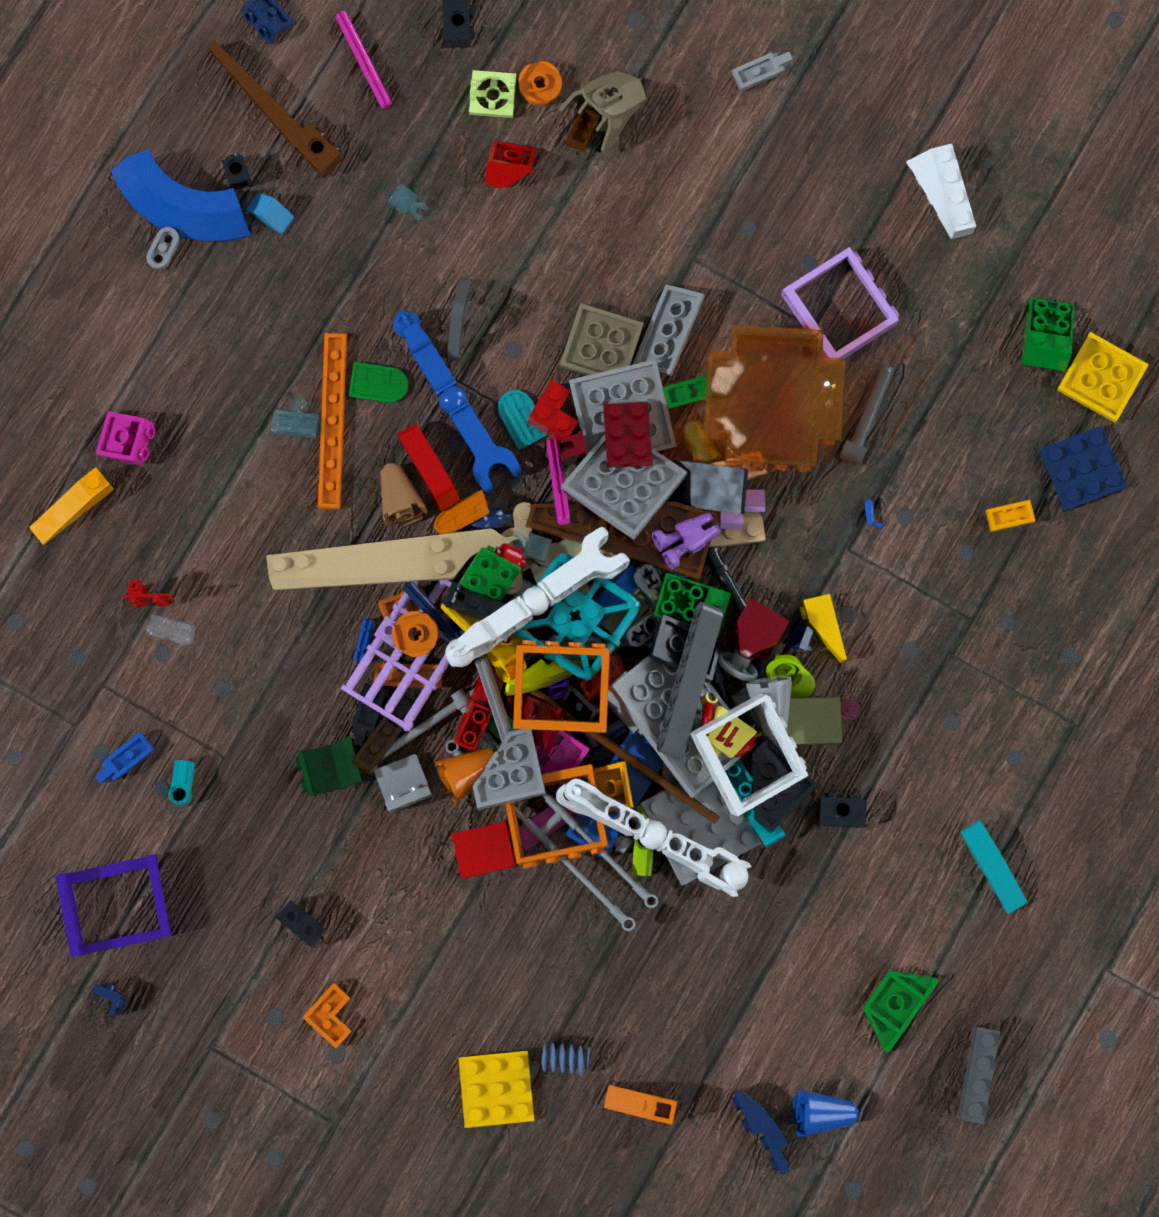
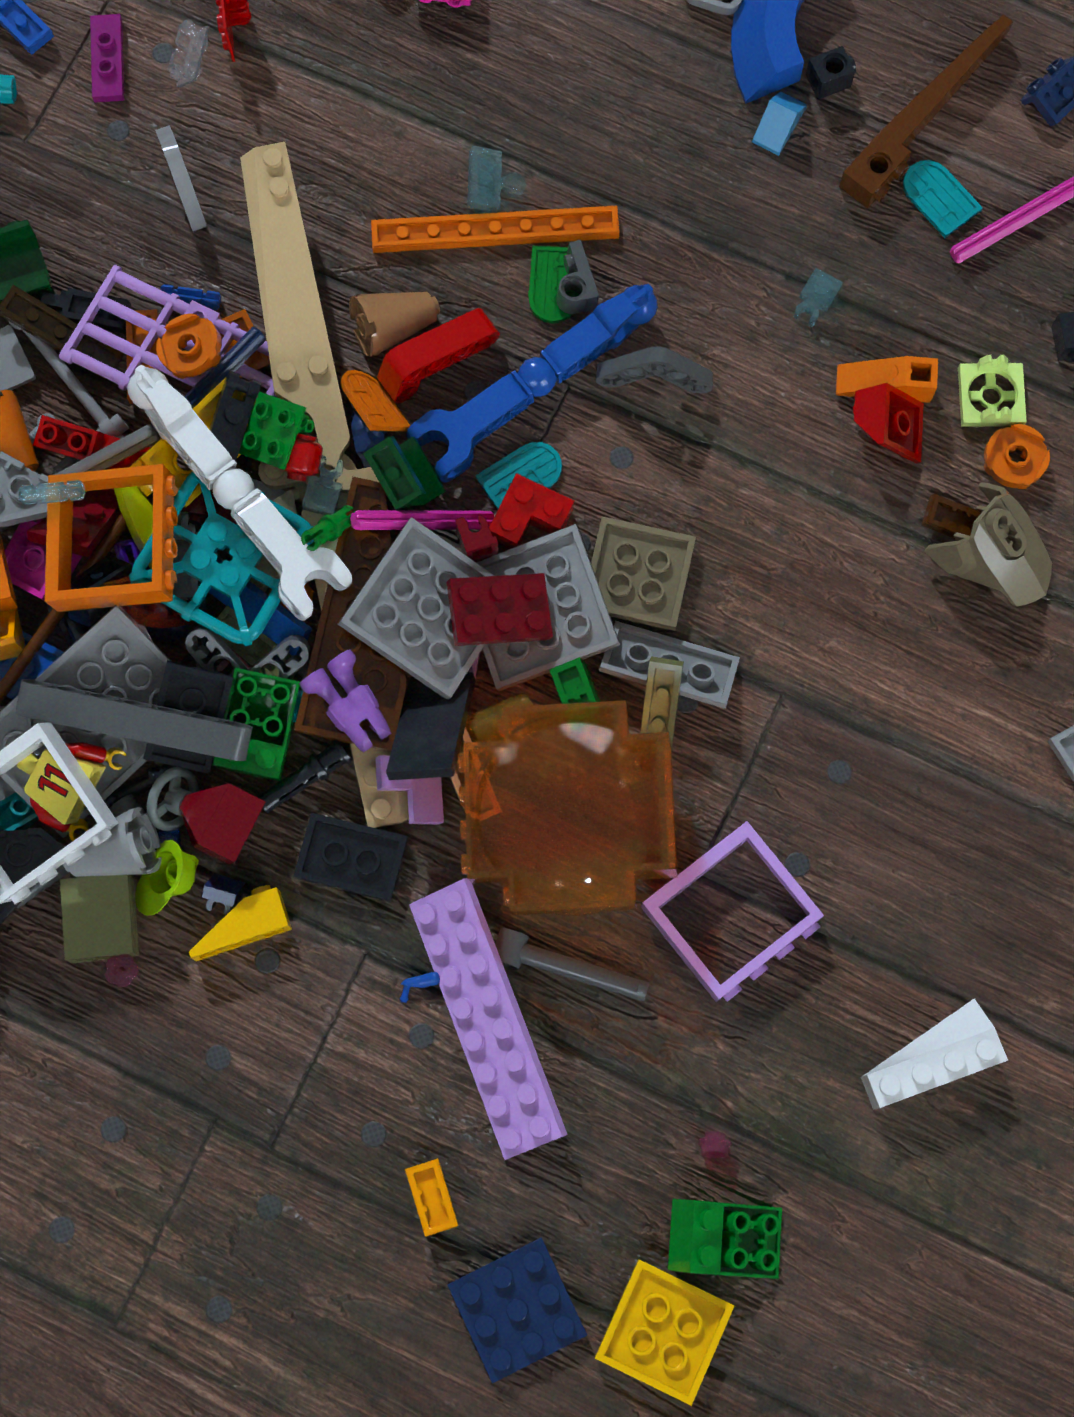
camera: 85 degrees right, 5 degrees down
(164, 693) = (107, 58): none -> magenta plate
(268, 638) = (181, 178): none -> light grey beam
(339, 109) = (939, 196): none -> teal window
(370, 364) = (578, 280): none -> dark grey plate
(478, 151) = (907, 373): none -> orange slope
(522, 491) = (404, 473): none -> dark green panel
(528, 723) = (52, 492): none -> clear light blue axle
(567, 538) = (328, 528): none -> green pin
(699, 335) = (662, 696): none -> olive plate
(784, 552) = (351, 857): none -> black plate
(898, 470) = (488, 1019): none -> lavender plate
(989, 334) = (714, 1145): none -> clear pink plate

